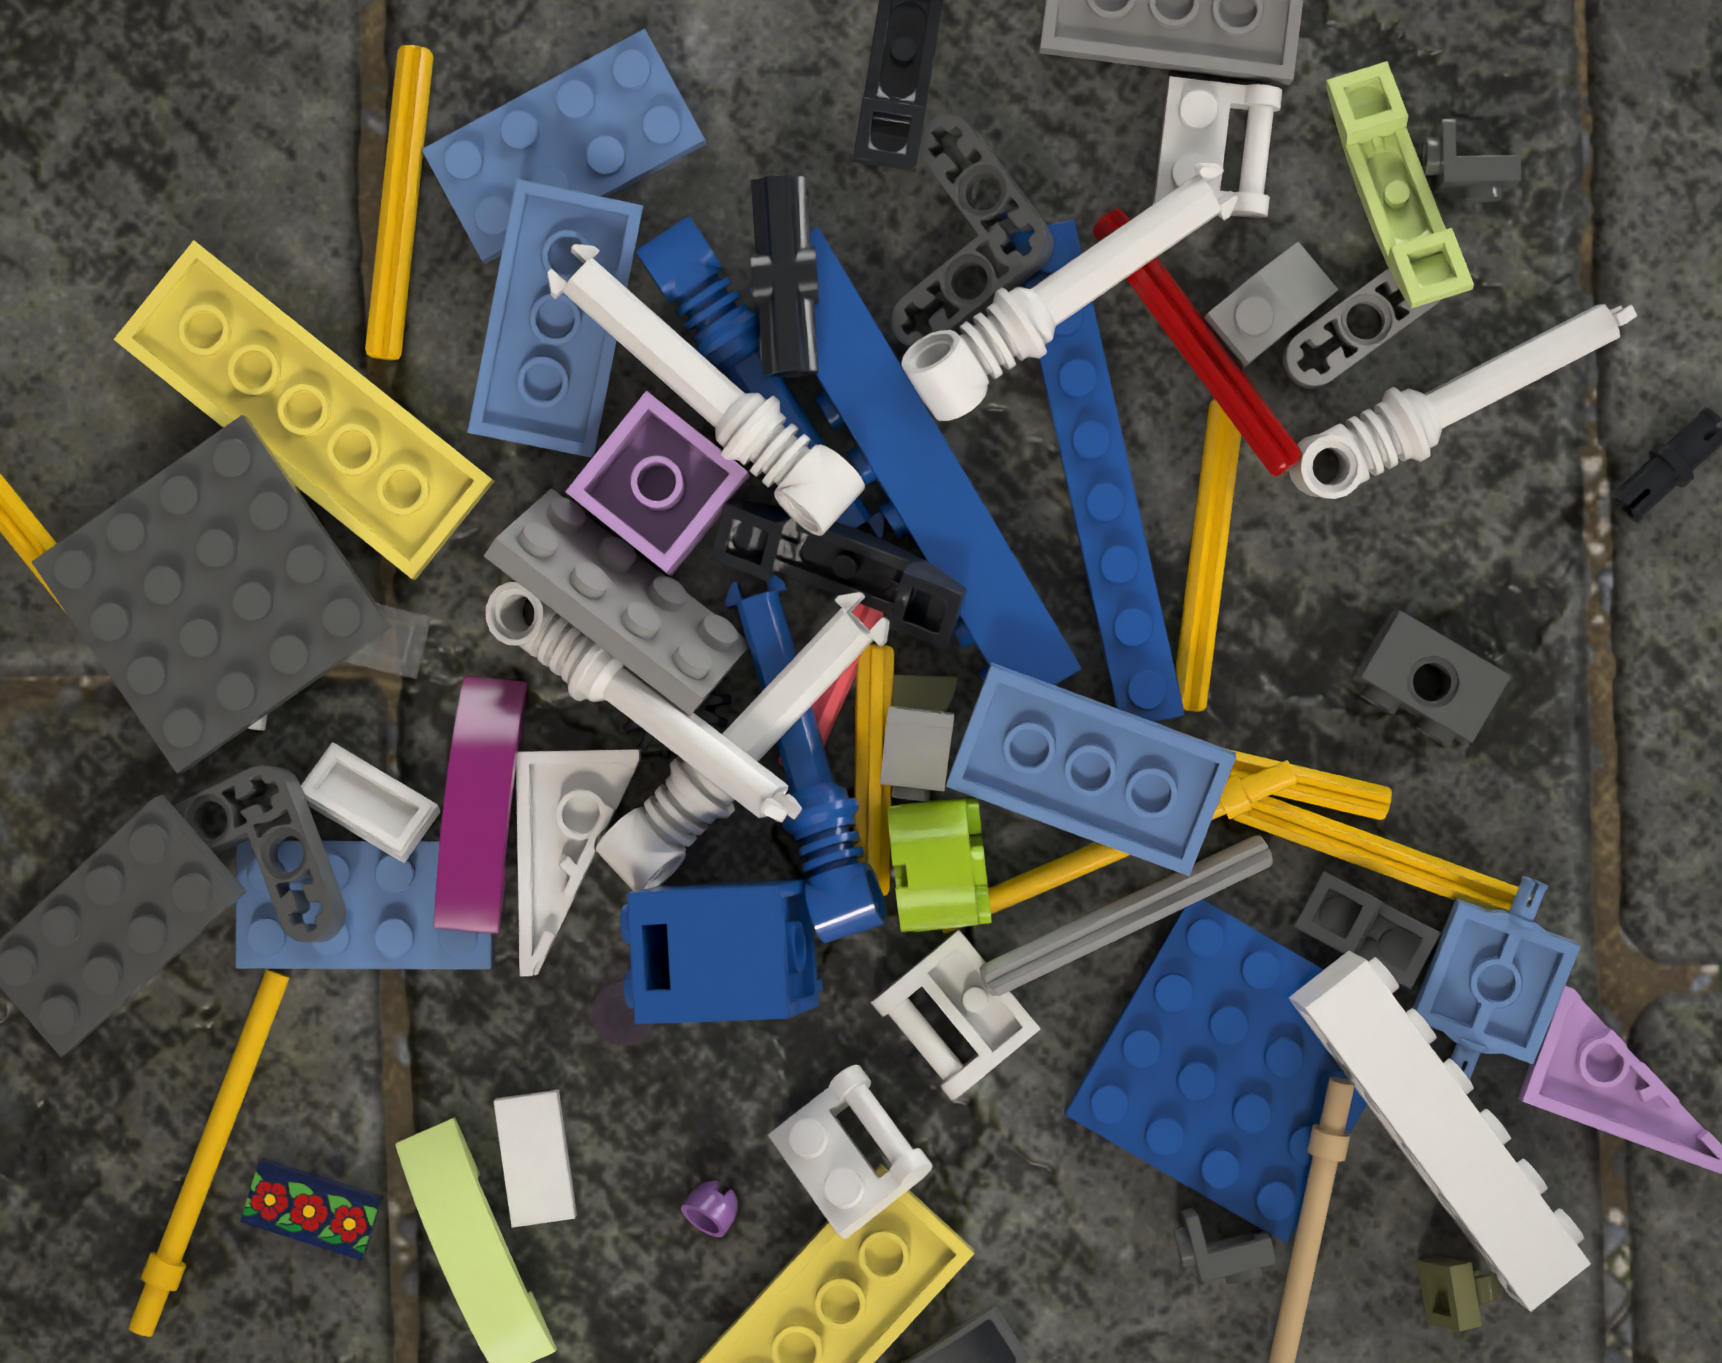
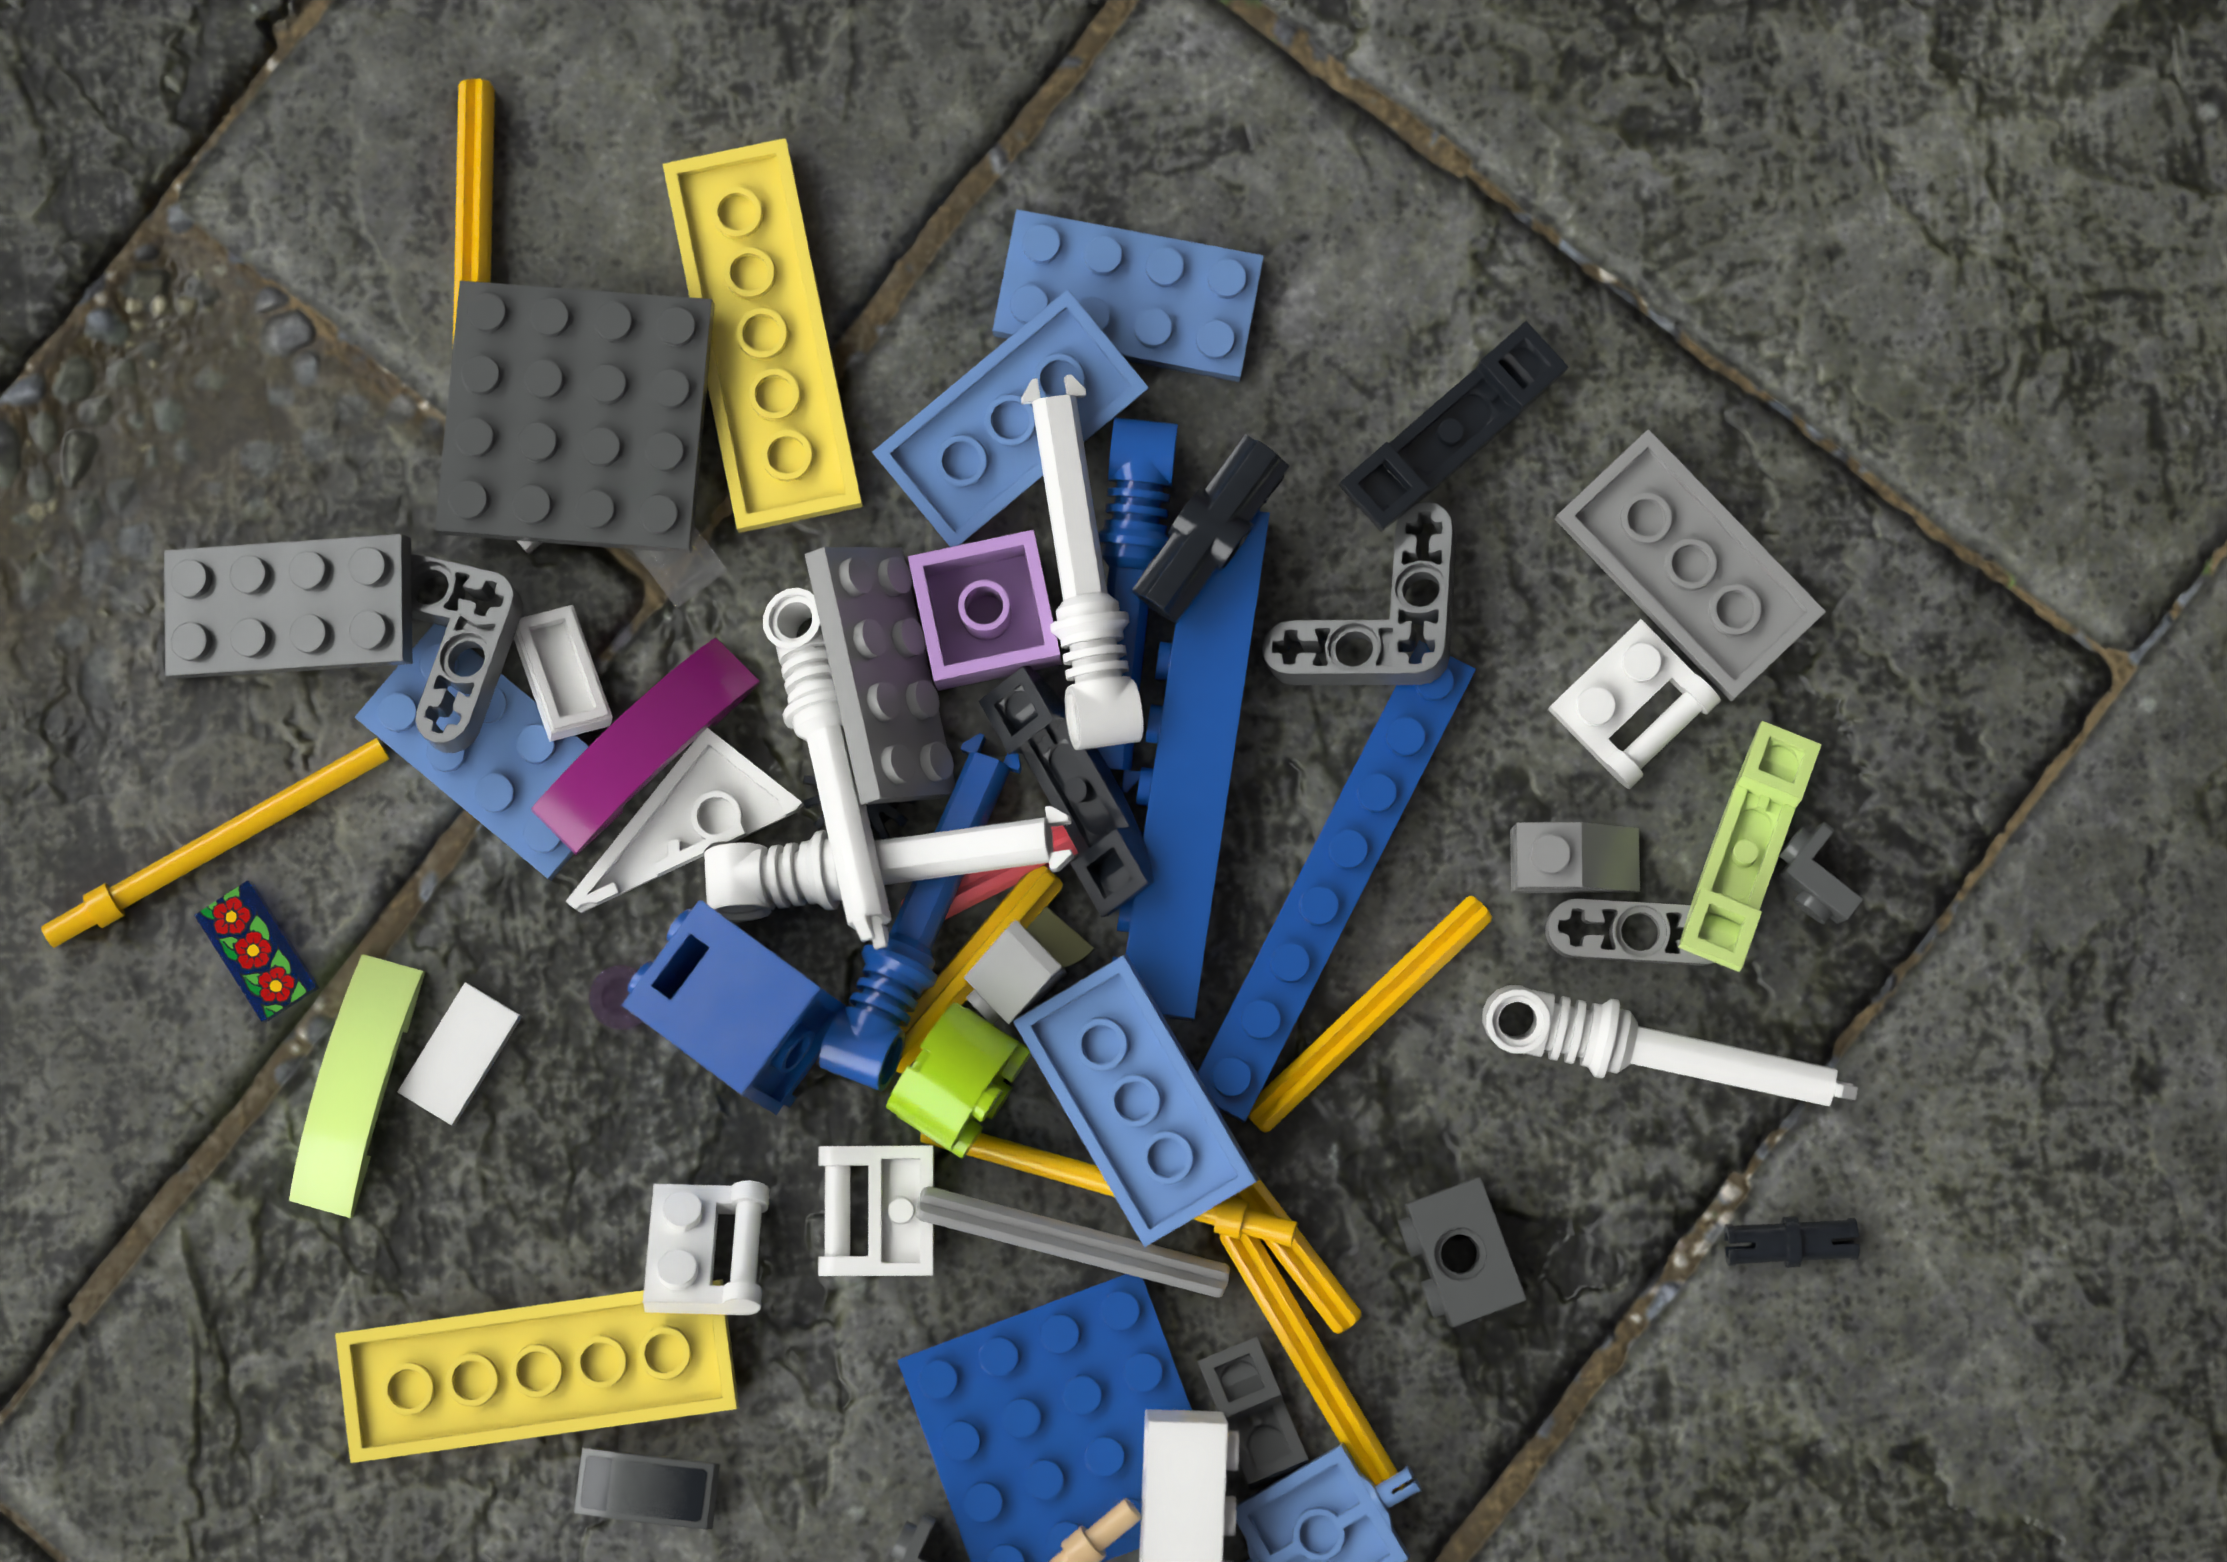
camera: 40 degrees right, 5 degrees down
(399, 202) = (965, 236): yellow axle -> none
(710, 1209) = (561, 1206): medium lavender hinge -> none
(954, 369) = (1283, 706): white piece -> none
(1208, 358) = (1493, 841): red axle -> none

